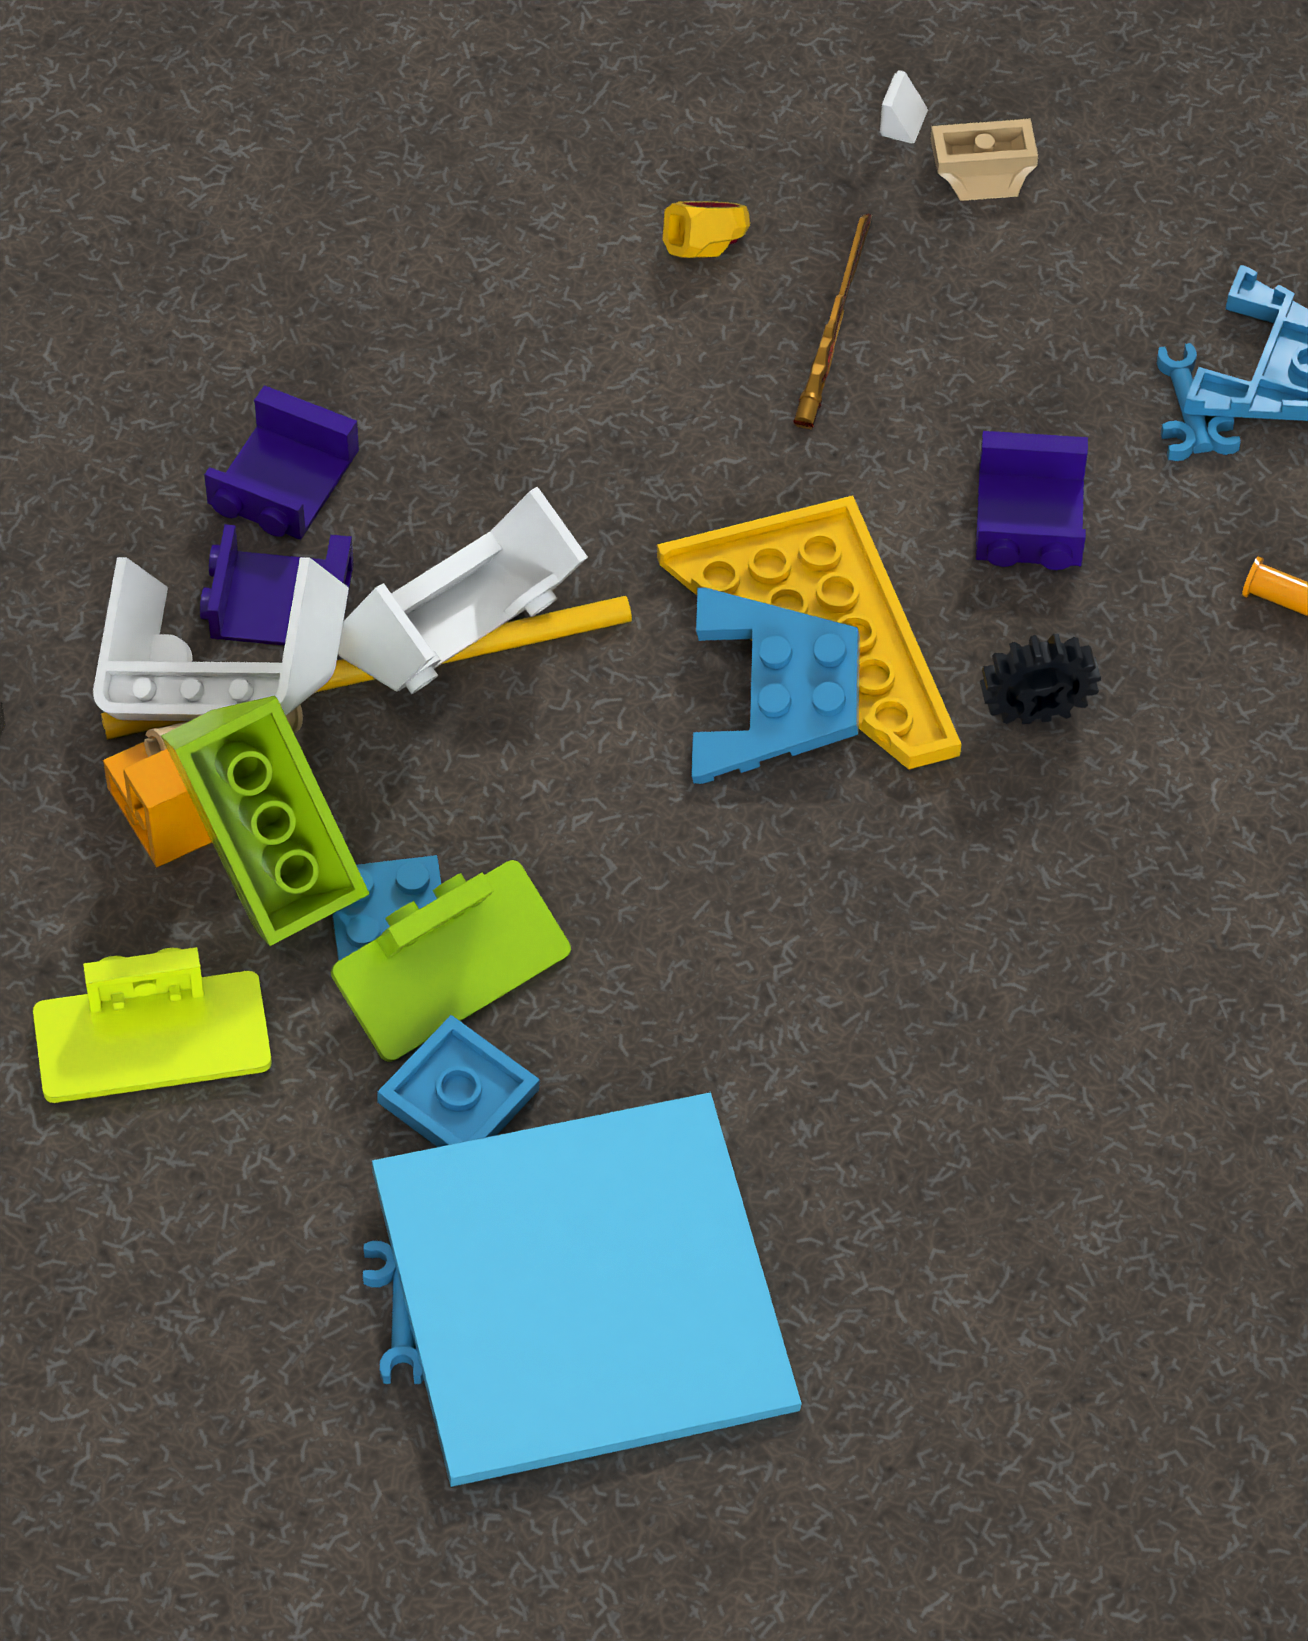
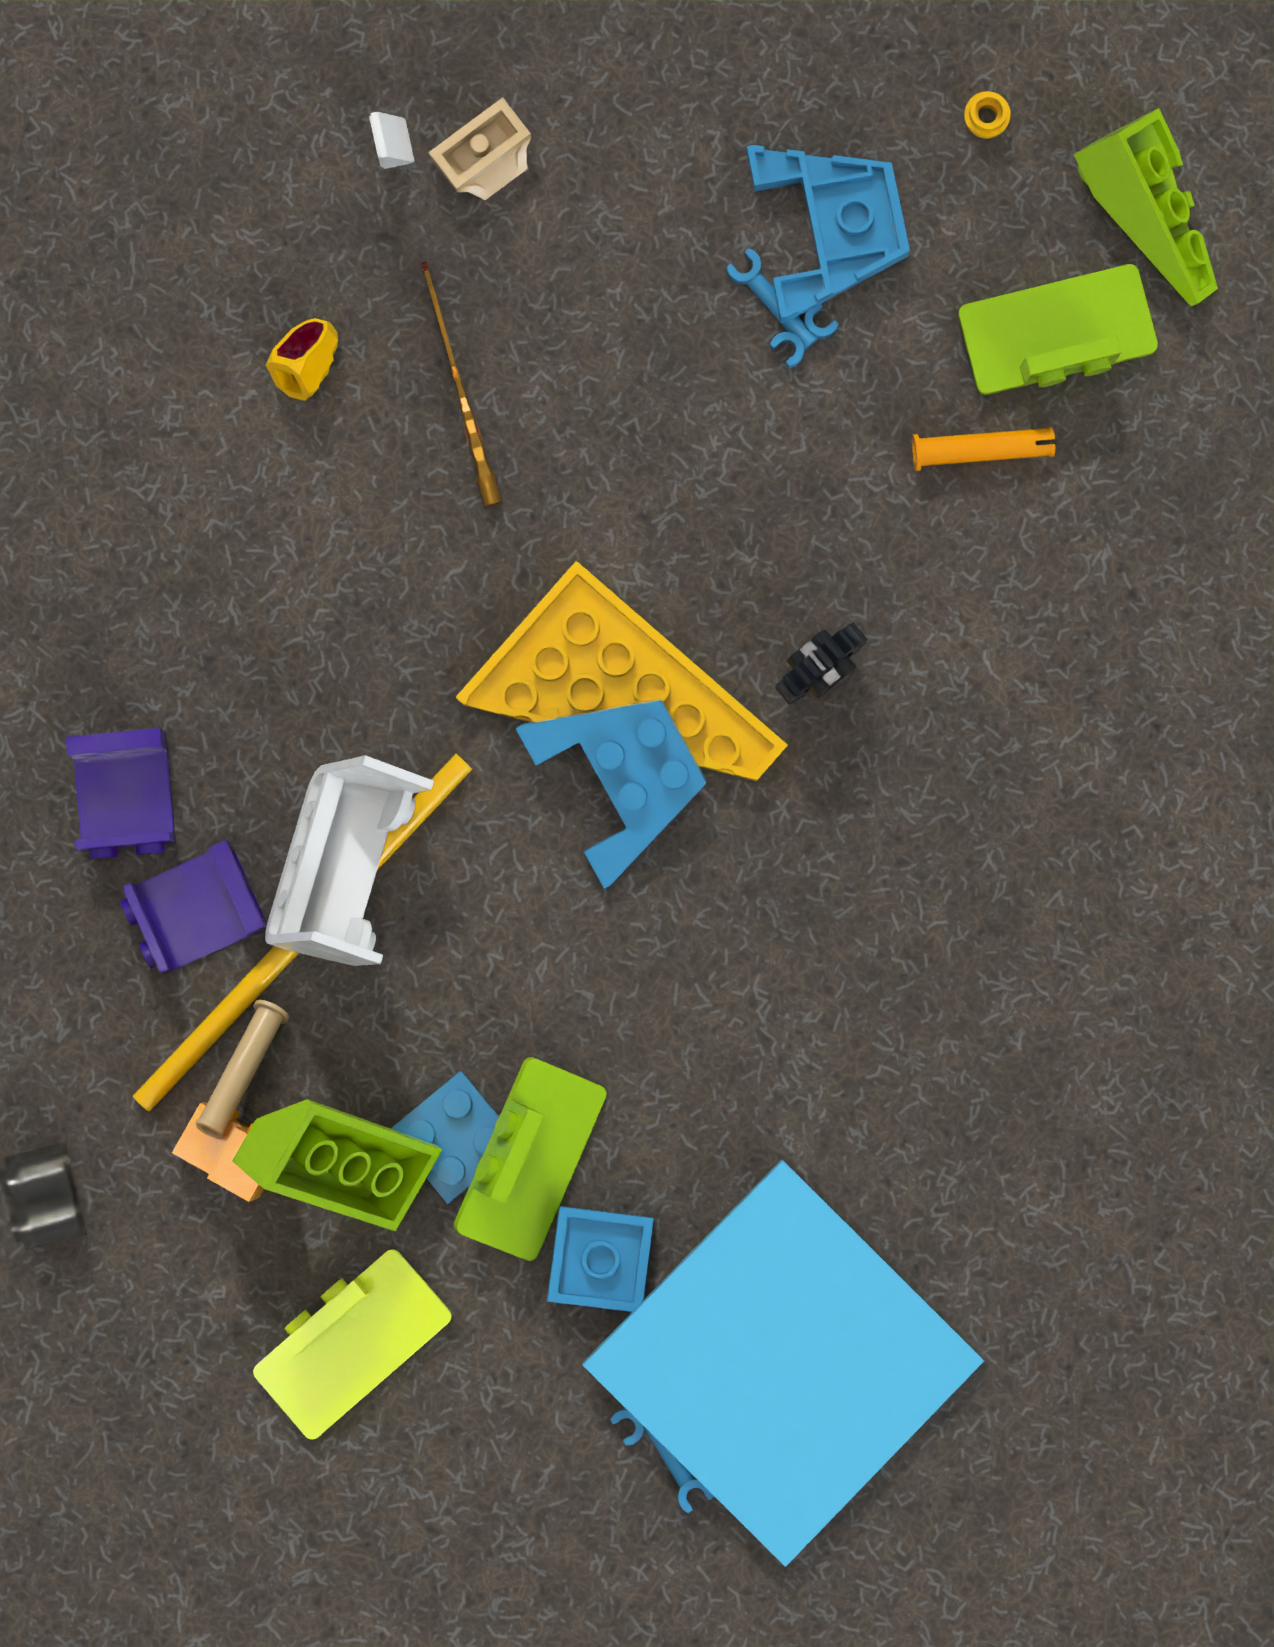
camera: 30 degrees left, 30 degrees up
(154, 674) = (178, 1066): white windscreen -> none
(1031, 499) = (712, 482): dark purple panel -> none

